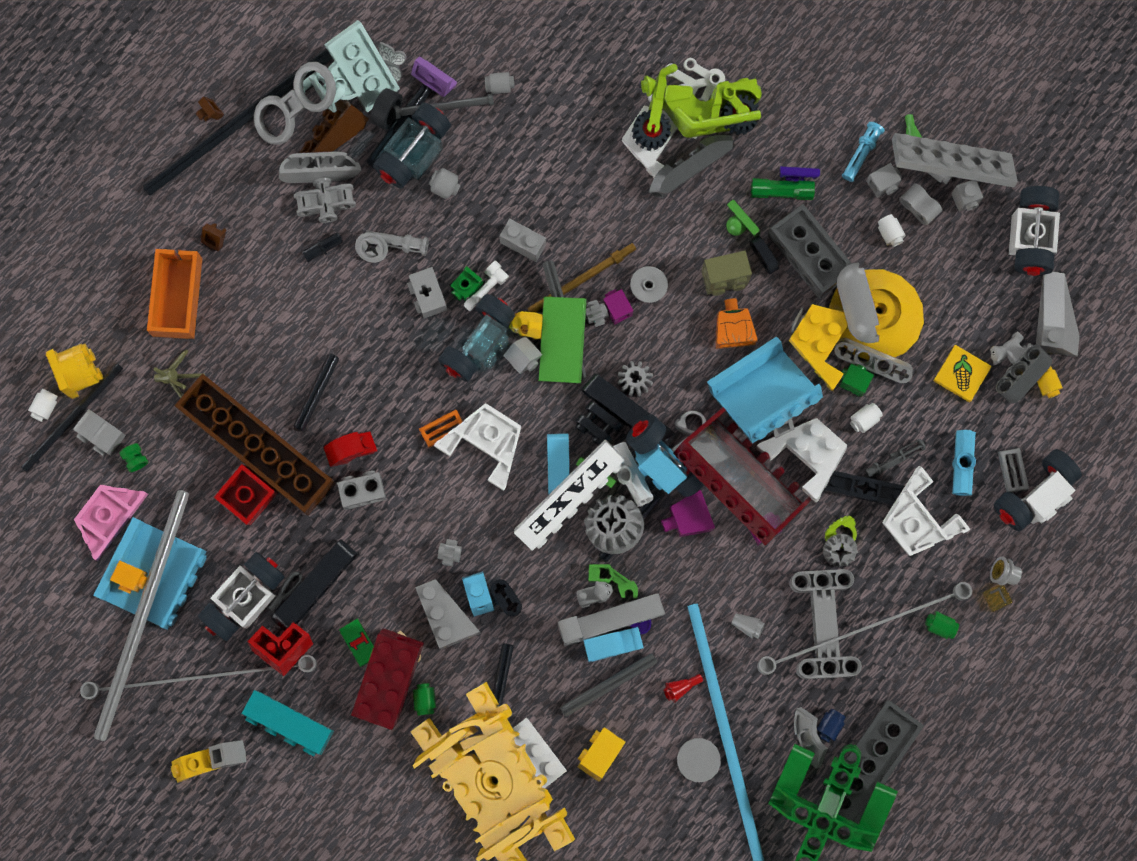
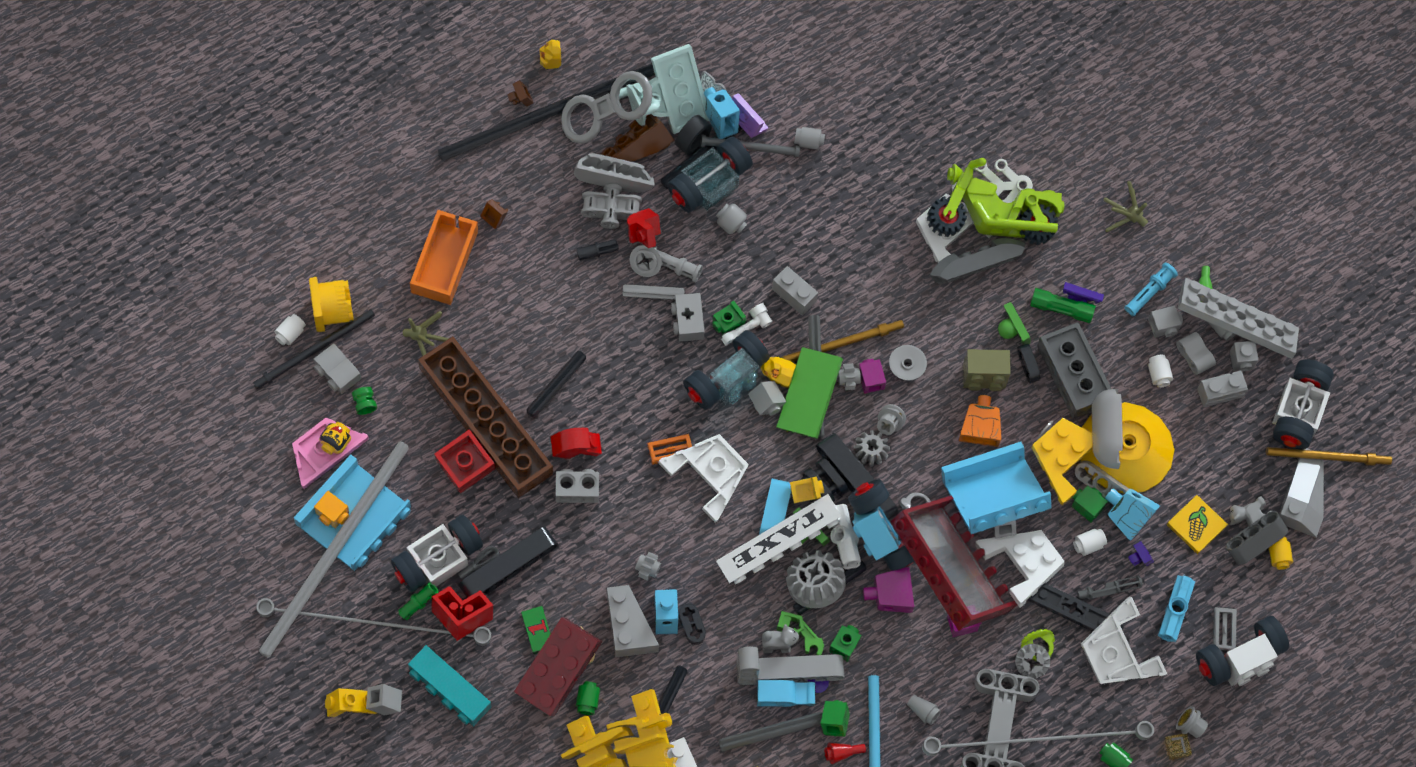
camera: 10 degrees right, 10 degrees down
(113, 505) = (335, 438): none -> head
(228, 62) = (551, 55): none -> yellow rock
(236, 647) = (418, 601): none -> green pin
(360, 215) = (644, 227): none -> red brick
(385, 276) = (652, 292): none -> light grey axle
(408, 79) = (721, 112): none -> medium azure torso
(583, 439) = (806, 489): none -> yellow bracket
(646, 346) = (886, 418): none -> light grey piece
(652, 584) = (843, 648): none -> green brick
(666, 658) = (835, 718): none -> green brick
(827, 80) = (1133, 213): none -> olive plant
(898, 379) = (1130, 511): none -> medium azure torso
(918, 417) = (1141, 555): none -> dark purple tile
(954, 233) = (1222, 388): none -> light grey brick
(1107, 267) = (1368, 458): none -> pearl gold bar

